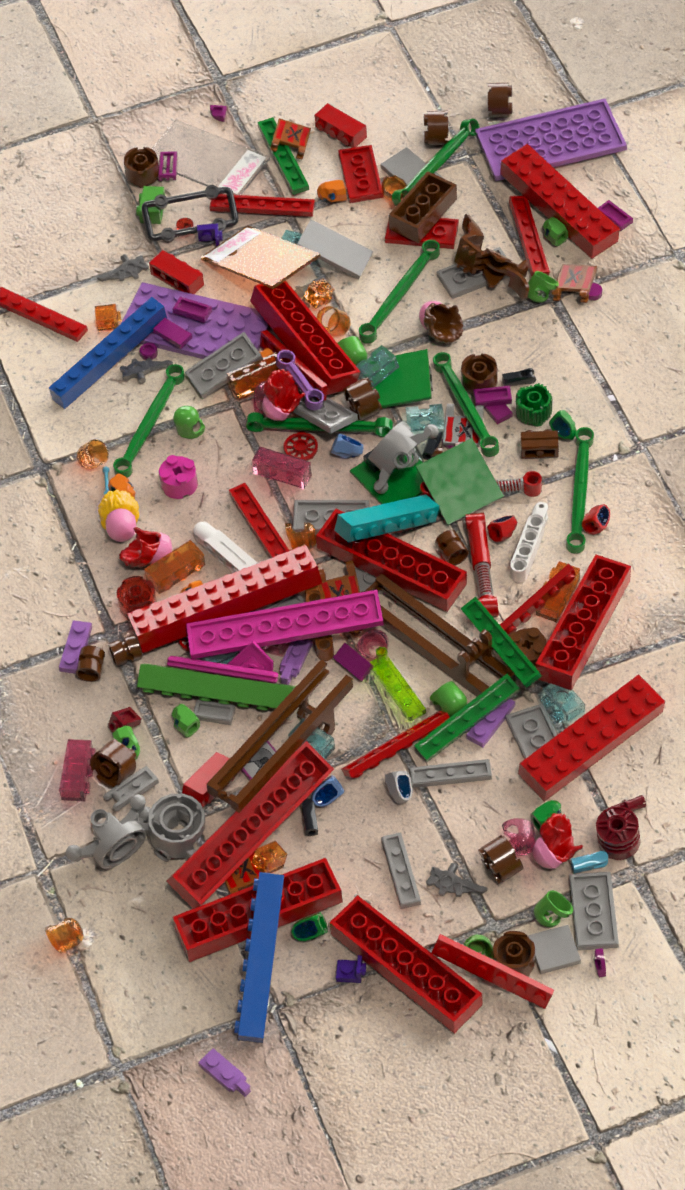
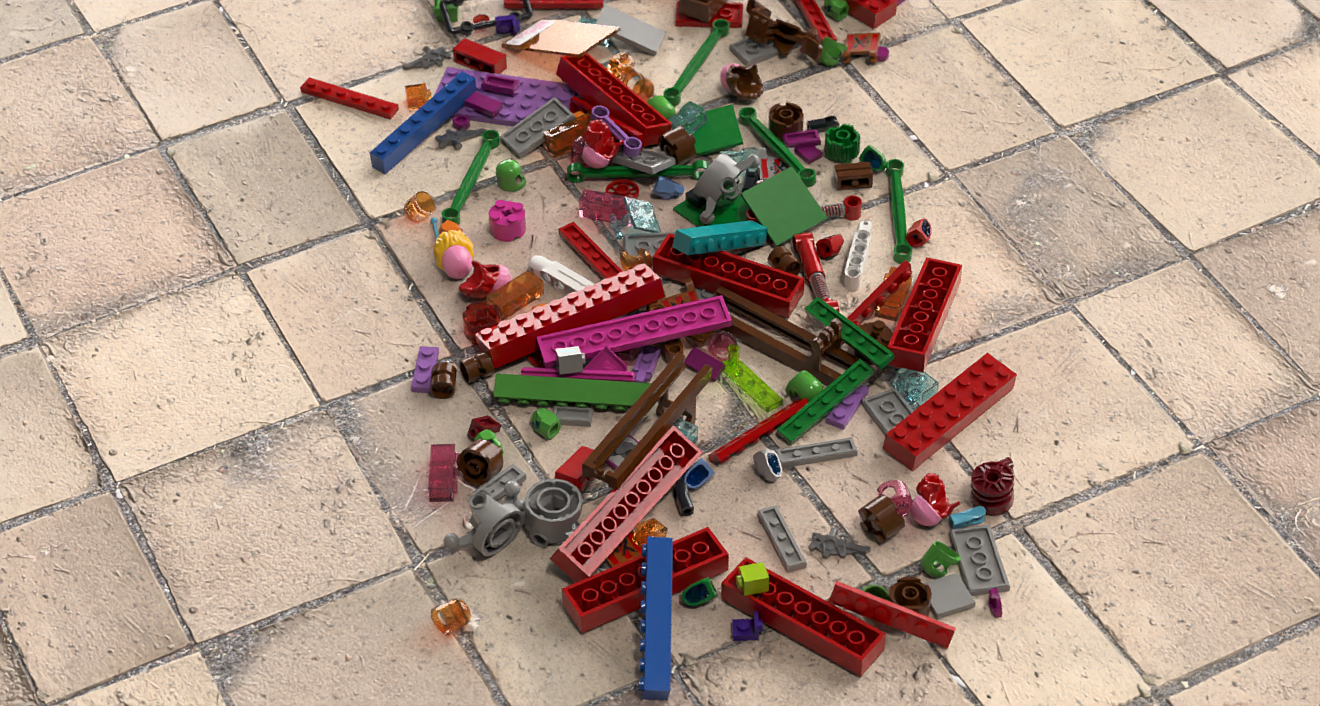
camera: 10 degrees left, 10 degrees down
(214, 655) = (569, 360): none -> light grey brick
(312, 481) = (641, 216): none -> clear light blue plate
(359, 923) = (753, 579): none -> lime brick
(544, 812) = (914, 477): green rock -> none

